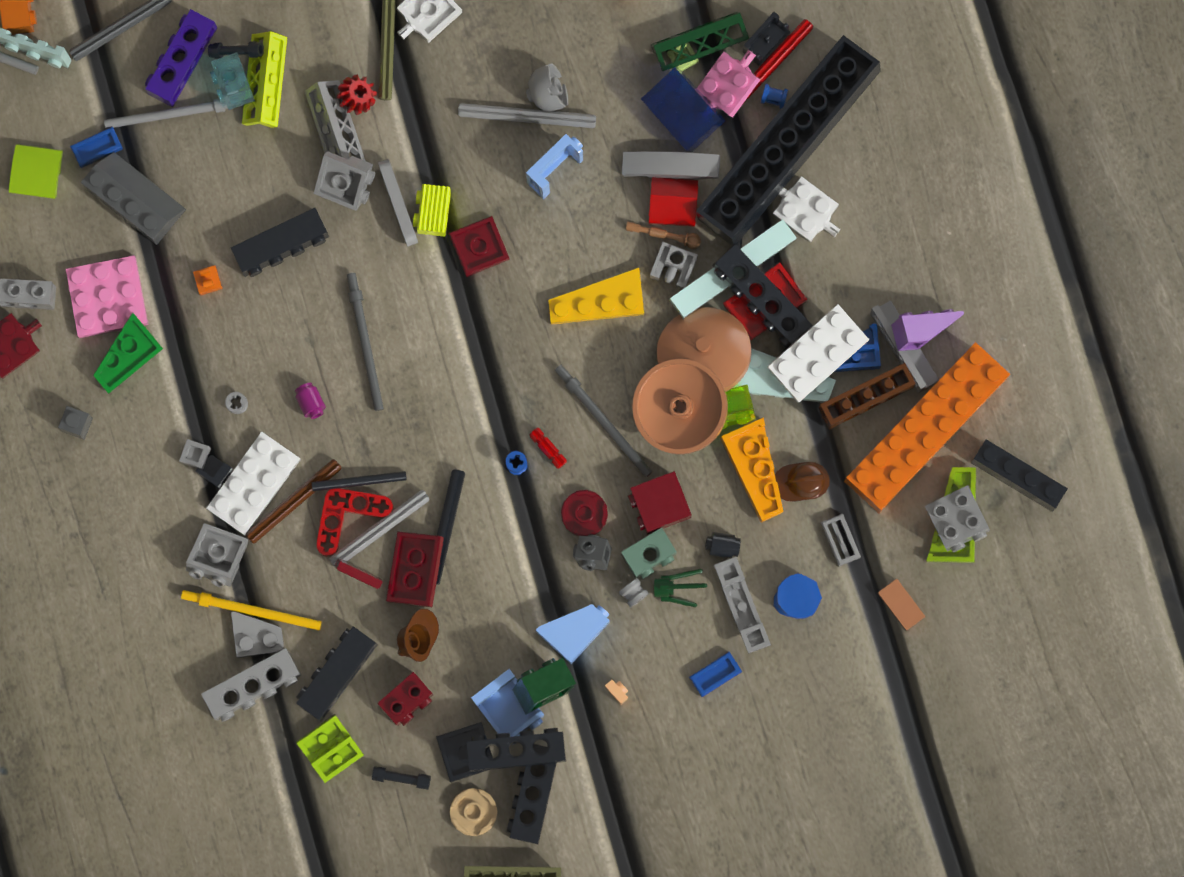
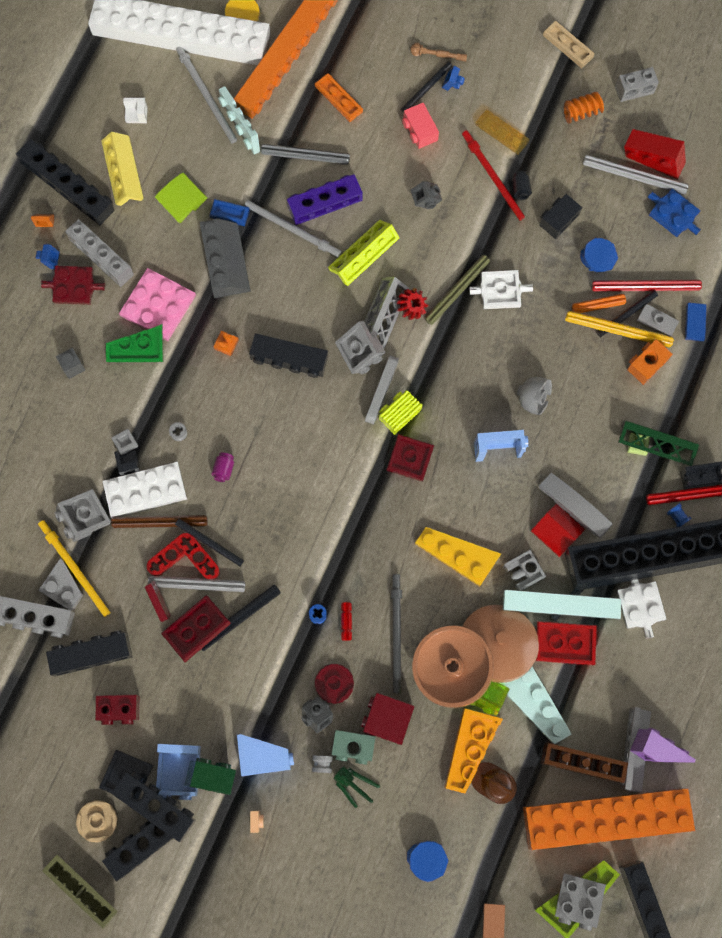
camera: 35 degrees right, 5 degrees down
(232, 80) = (342, 236): clear light blue brick -> none
(253, 49) = (351, 213): black bar -> none
(329, 748) = (44, 699): lime slope -> none
(356, 298) = (306, 426): dark grey bar -> none
(380, 774) = (81, 770): black bar -> none
(418, 636) = (160, 674): reddish brown piece -> none
(527, 115) = (508, 401): light grey axle -> none
(683, 109) = (612, 476): clear blue brick -> none
(691, 240) = (549, 564): medium nougat piece -> none
(715, 674) = (330, 865): blue tile -> none
(723, 545) = (406, 782): black brick -> none
(729, 82) = (654, 484): bright pink plate -> none
(736, 257) = (577, 701): black brick -> none
(741, 605) = (385, 834): light grey slope -> none
(818, 353) = (574, 707): white plate -> none
(848, 558) = (495, 849): light grey tile -> none
(867, 356) = (601, 728): blue wing -> none

